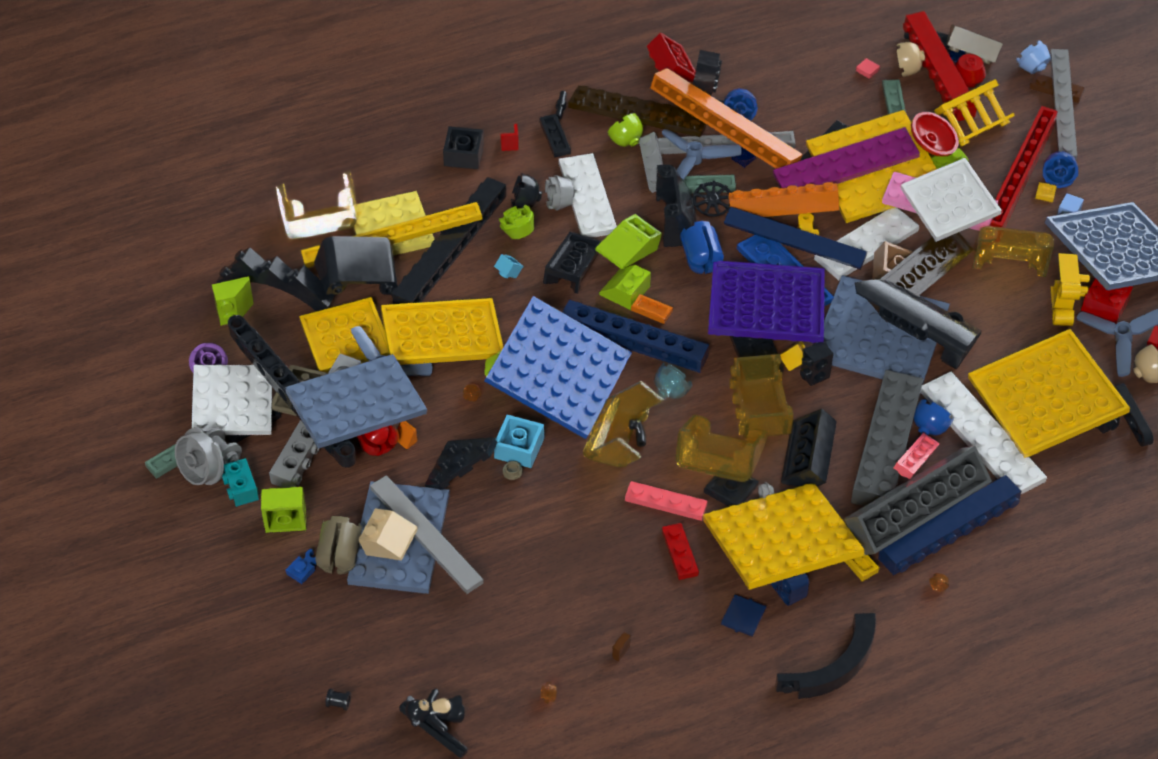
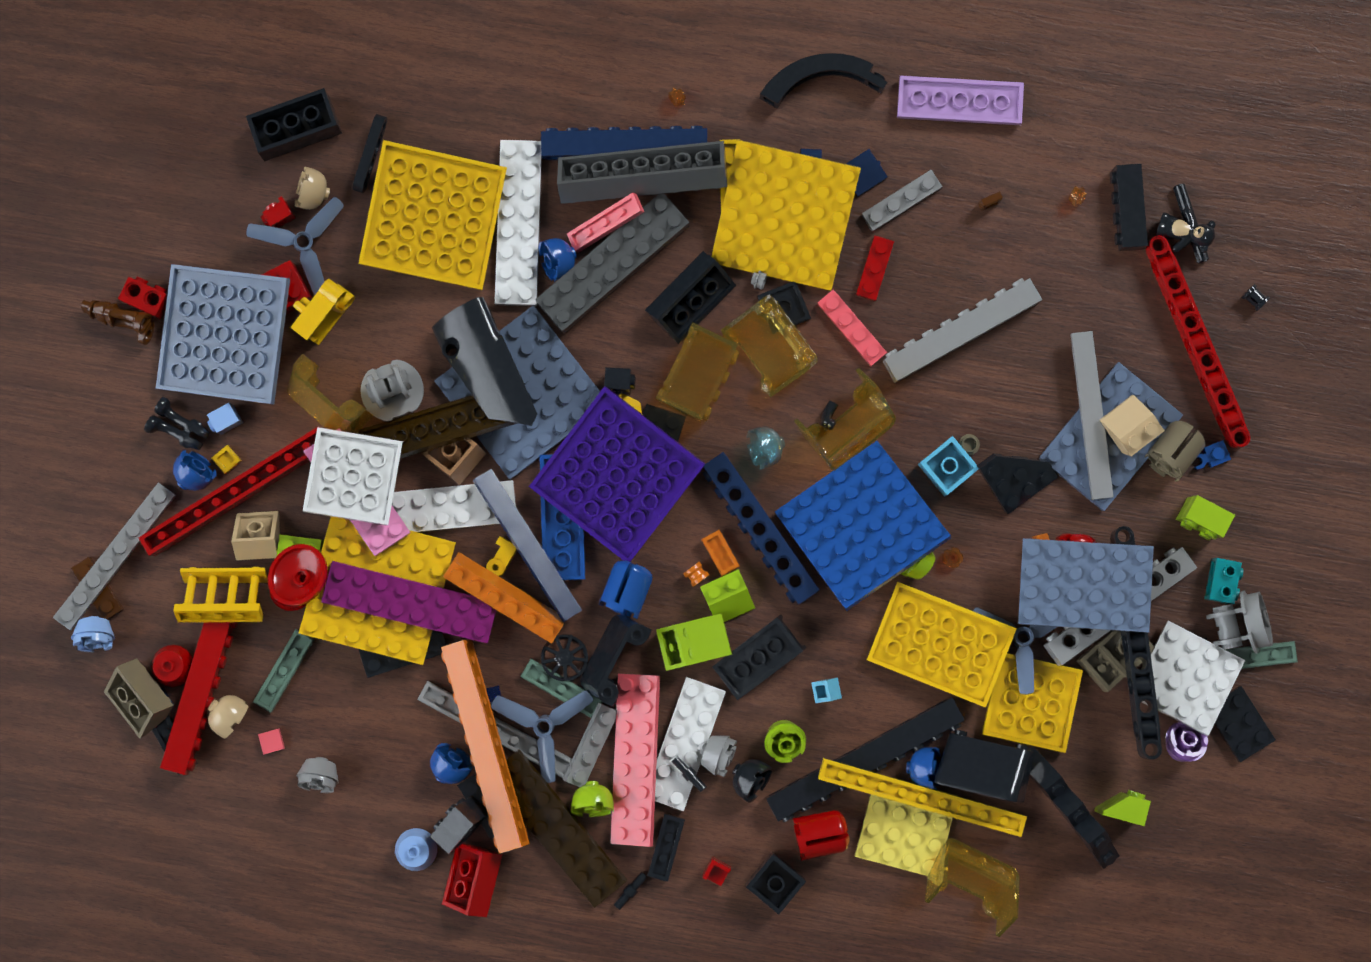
camera: 145 degrees left, 35 degrees up
(166, 403) = (1242, 725): none -> black plate
(368, 636) = (1197, 342): none -> red beam
(404, 255) = (924, 767): none -> blue cylinder
(451, 183) = (821, 834): none -> red cylinder
(497, 708) = (1129, 207): none -> black brick
(571, 173) = (689, 773): none -> black bar
(574, 542) = (962, 330): none -> light grey brick
(616, 168) = (635, 760): none -> coral plate
(659, 286) = (696, 574): none -> orange wheel
(695, 611) = (901, 200): none -> light grey plate
(704, 711) = (960, 100): none -> lavender plate
(728, 55) = (415, 849): none -> light blue cone
(821, 59) = (318, 775): none -> light grey cone
(974, 277) = (391, 380): none -> light grey piece
(986, 158) = (256, 535): none -> tan slope
(1107, 190) = (156, 424): none -> black piece

